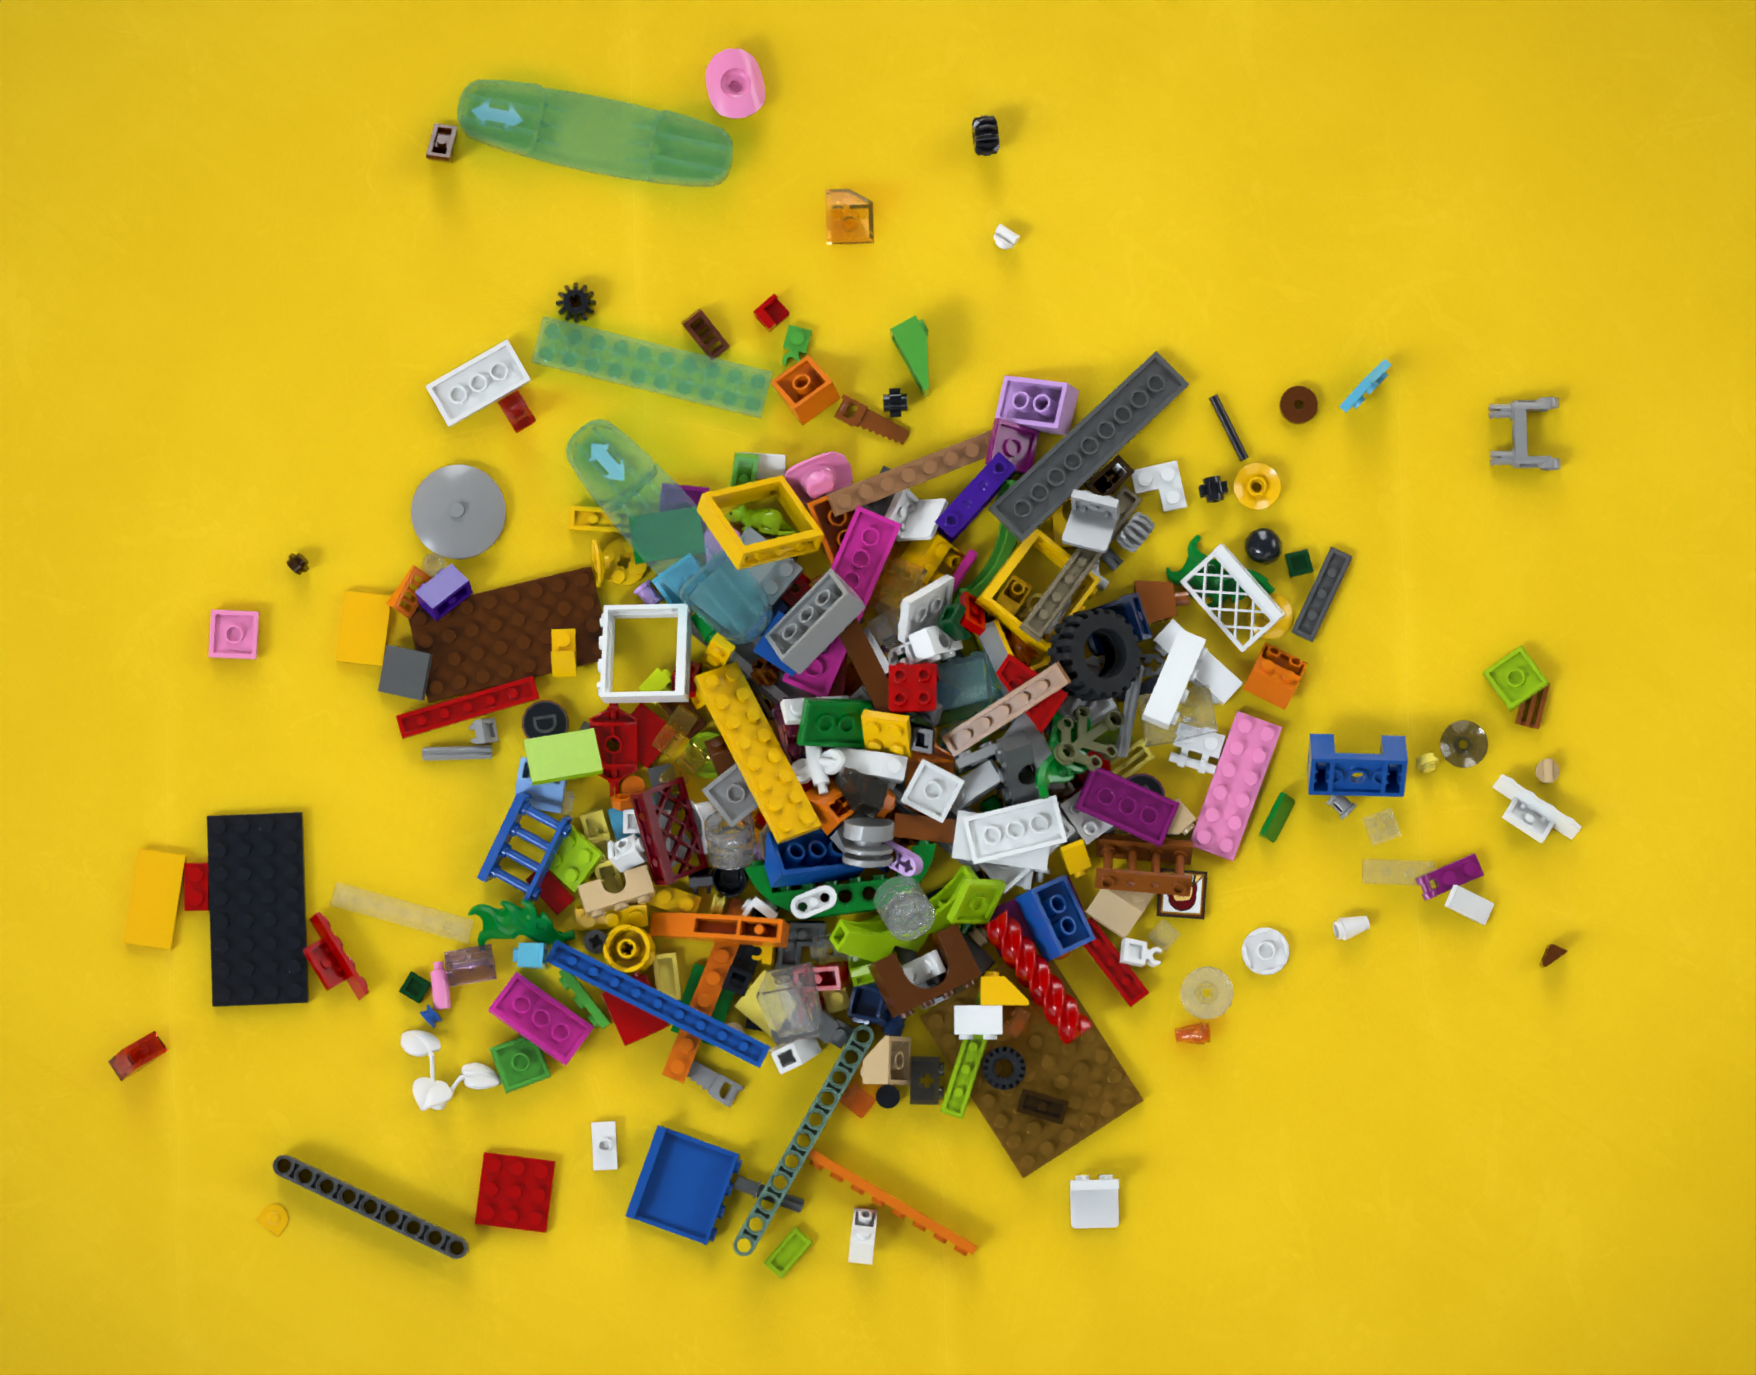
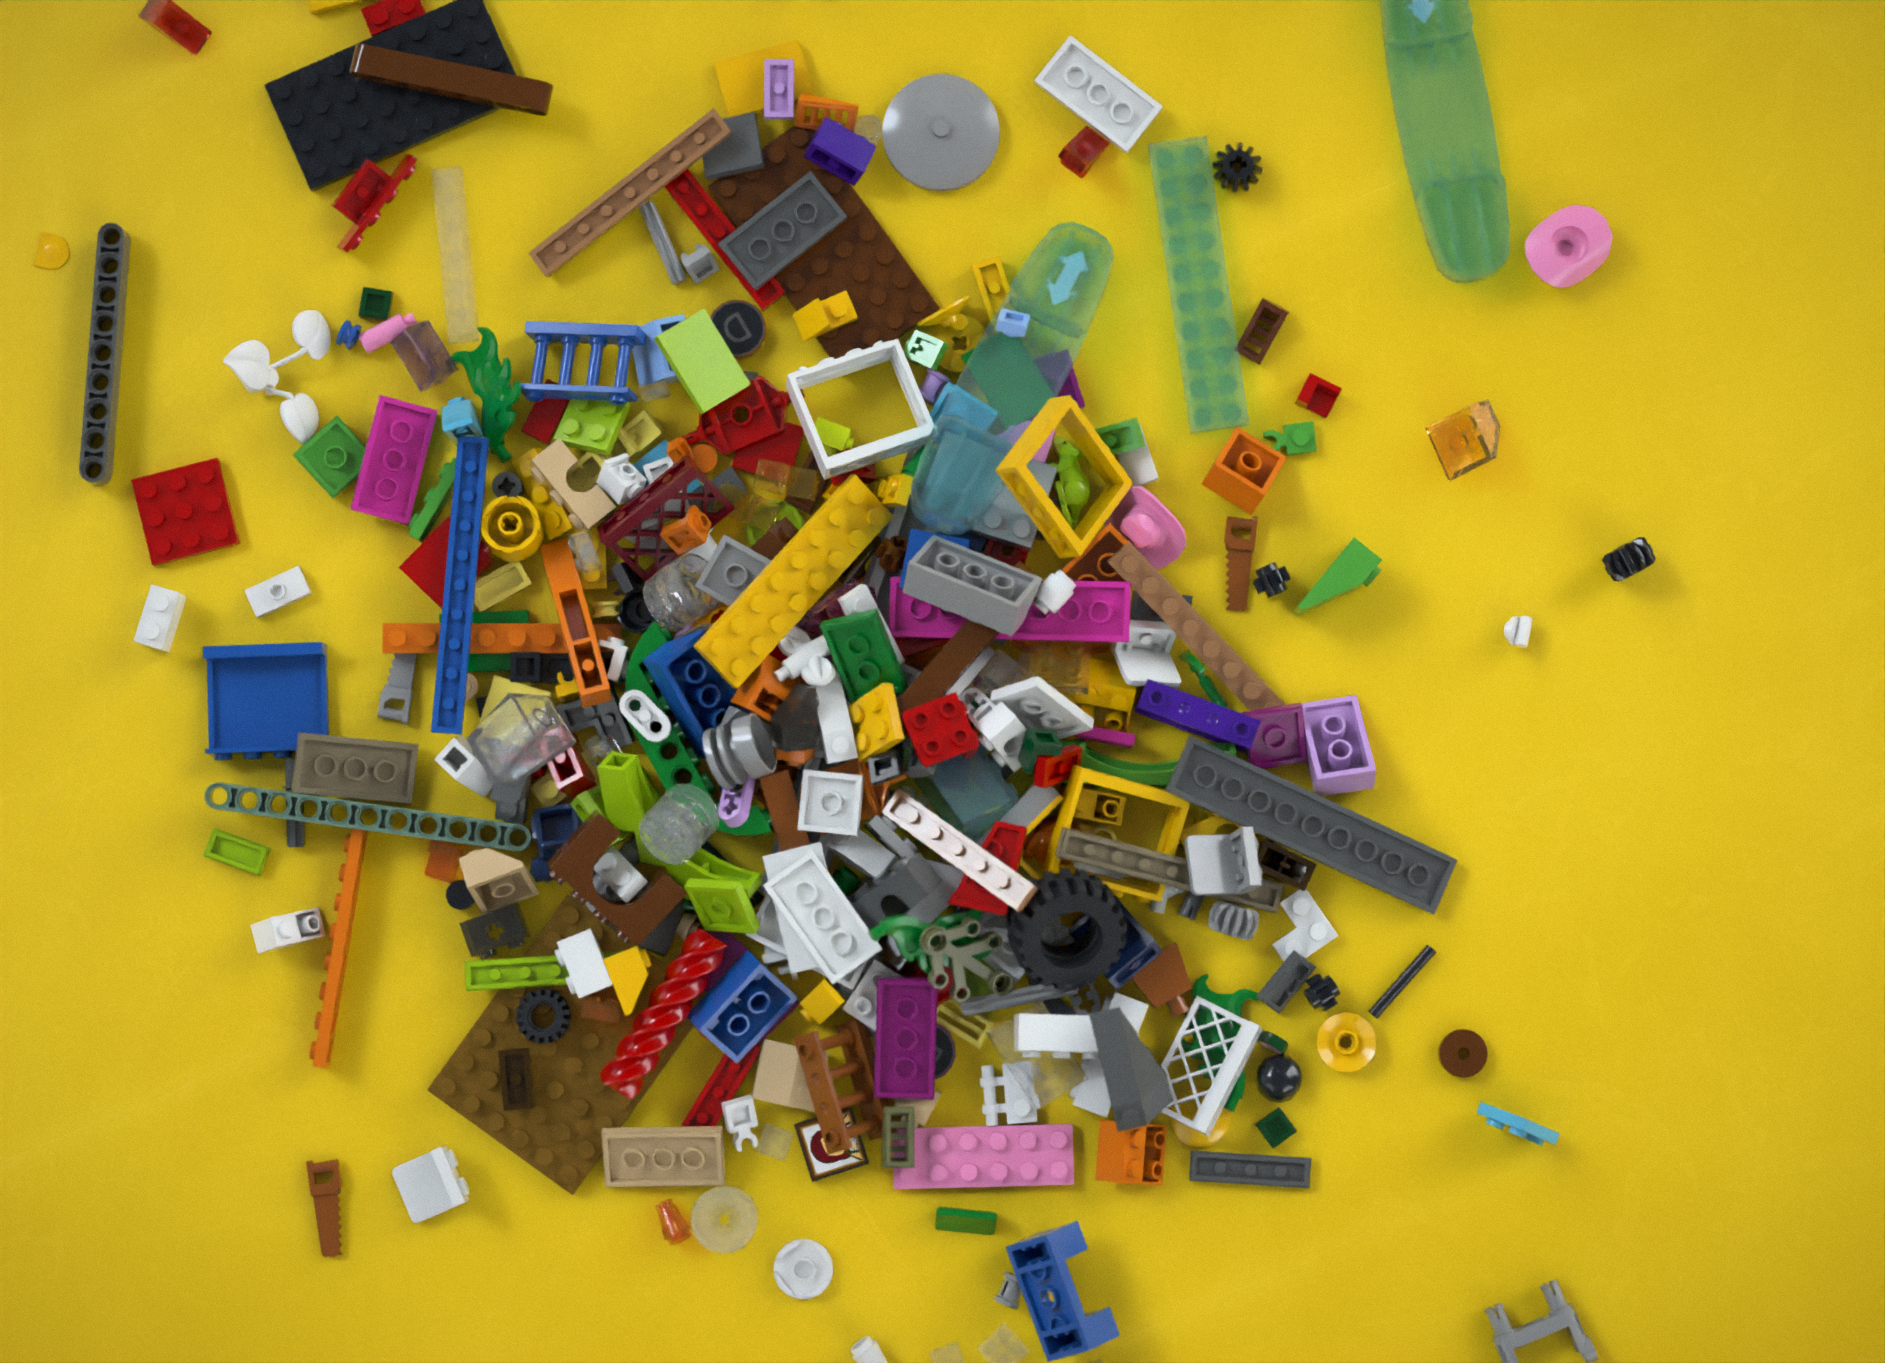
camera: 70 degrees right, 0 degrees up
(269, 862) = (451, 79): none -> reddish brown beam
(377, 619) = (779, 89): none -> lavender plate
(411, 761) = (630, 193): none -> medium nougat plate
(487, 658) = (782, 231): none -> dark grey plate
(589, 1241) = (160, 618): none -> white brick
(620, 588) = (925, 350): none -> bracket
(628, 514) = (1012, 323): none -> light blue plate
(670, 900) = (586, 553): none -> clear piece
(687, 818) = (688, 531): none -> orange bracket
(762, 1137) = (354, 767): none -> dark tan plate
(843, 563) = (1054, 592): none -> white brick
(951, 481) = (1205, 681): none -> green piece
(1079, 1287) = (327, 1205): none -> dark orange piece
(1142, 1020) = (663, 1156): none -> tan tile
(1195, 512) = (1286, 981): none -> dark grey plate
(1200, 833) = (886, 1148): none -> olive slope
(1218, 650) = (1132, 1076): none -> dark grey wedge
(1236, 539) = (1273, 1042): none -> dark green tile

